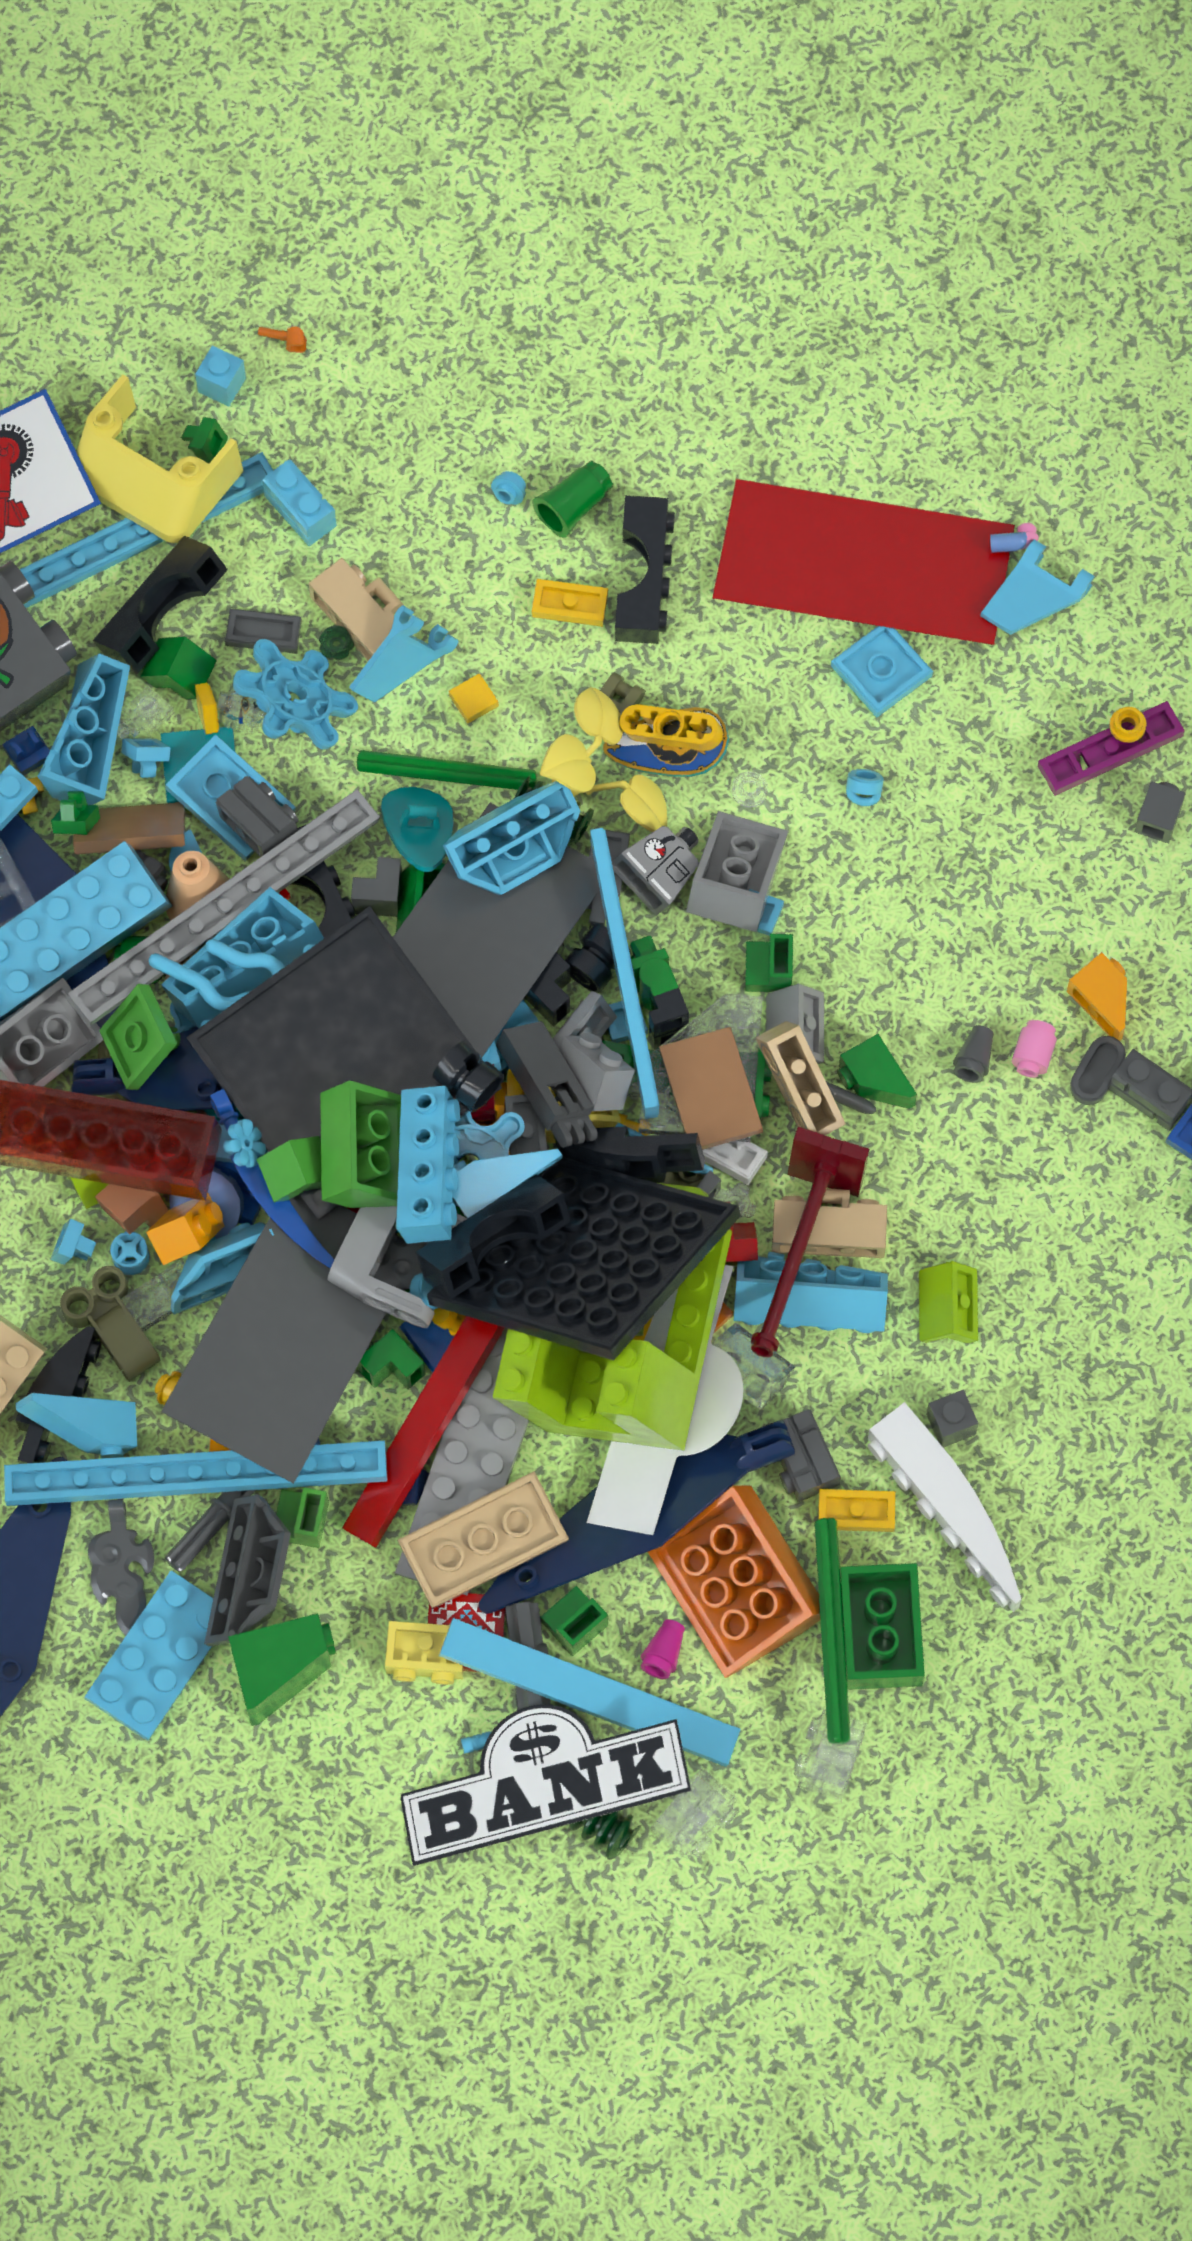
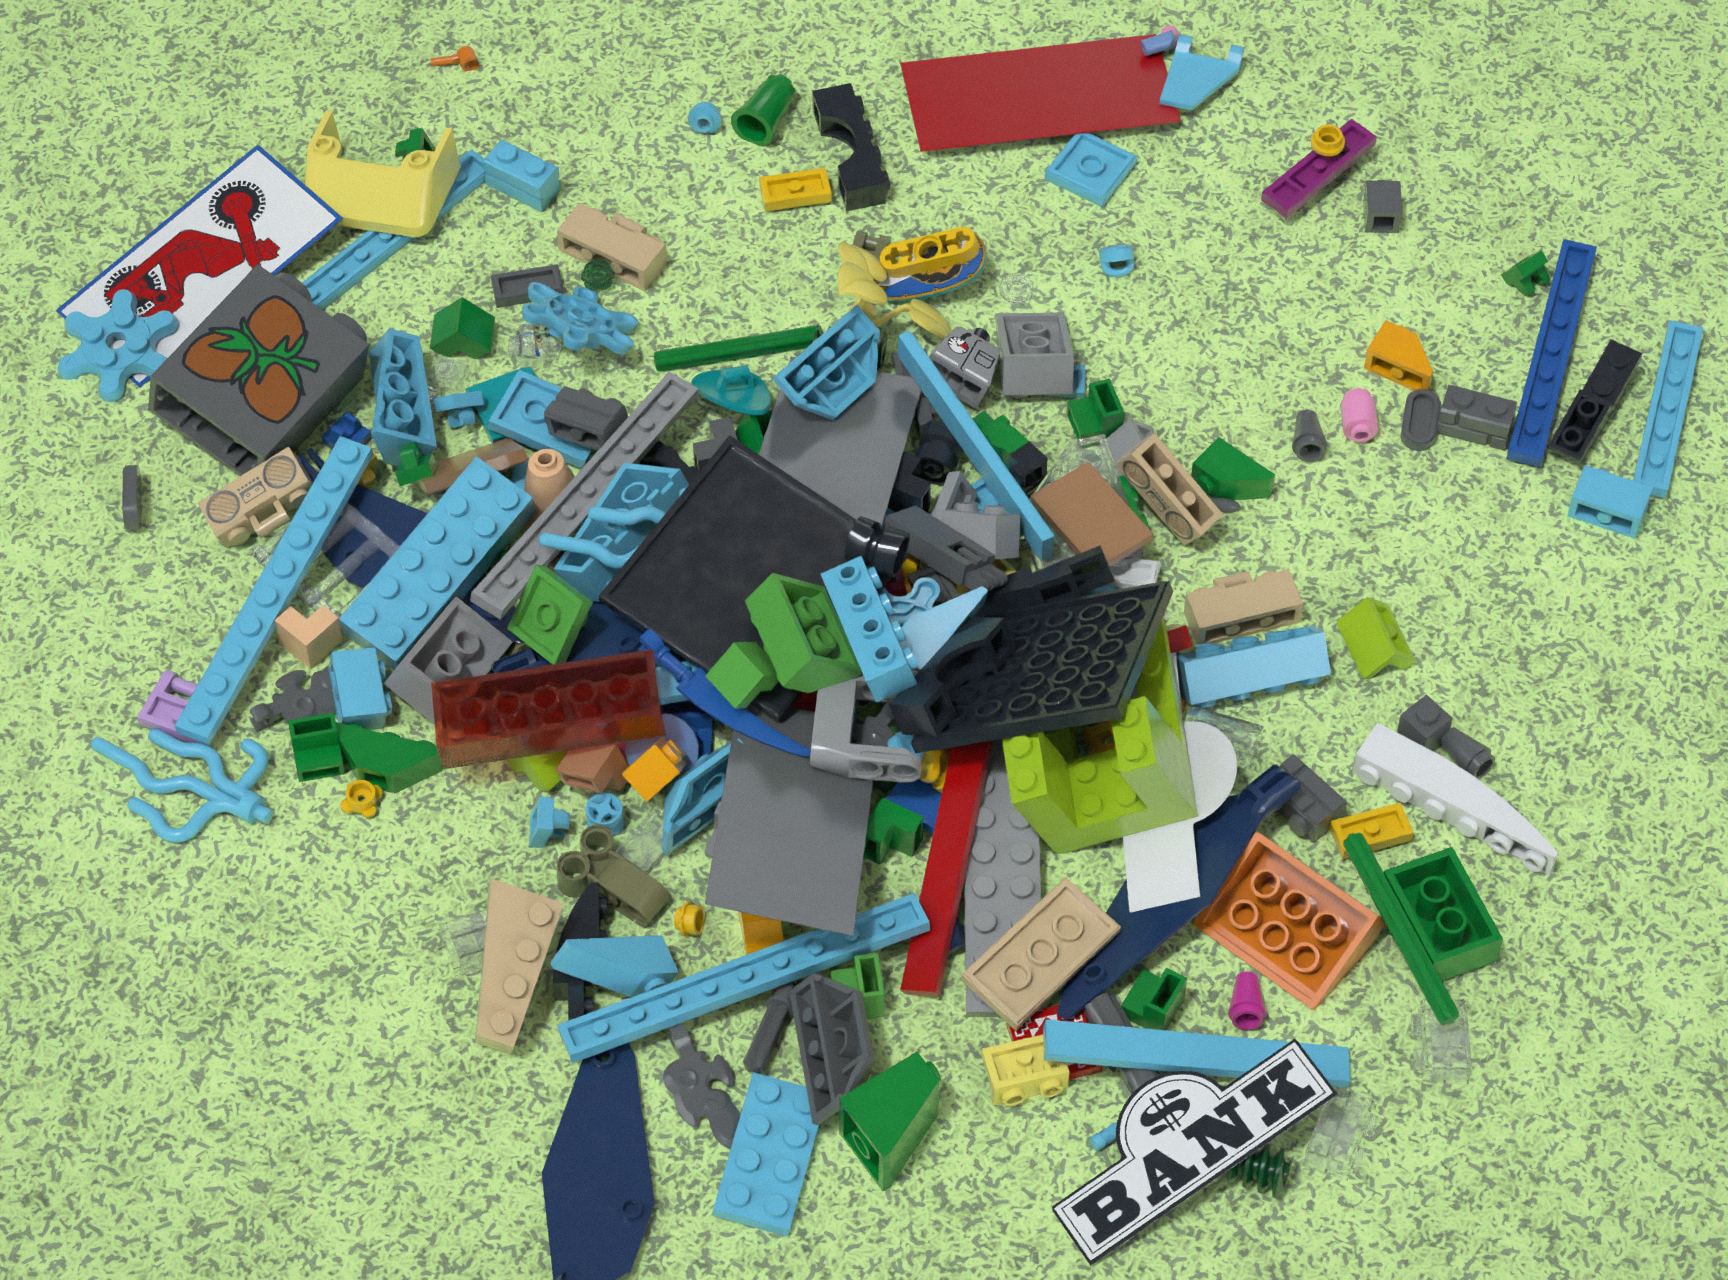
camera: 20 degrees left, 15 degrees down
(184, 573) = (439, 255): black arch -> none
(207, 708) = (502, 354): yellow tile -> none
(220, 376) = (412, 99): medium azure brick -> none
(244, 1143) = (687, 667): medium azure plant -> none
(401, 656) = (663, 265): medium azure flag -> none
(473, 698) = (739, 286): yellow tile -> none
(825, 1164) = (1216, 552): dark red tile -> none
(985, 1460) = (1468, 752): none -> dark grey cone

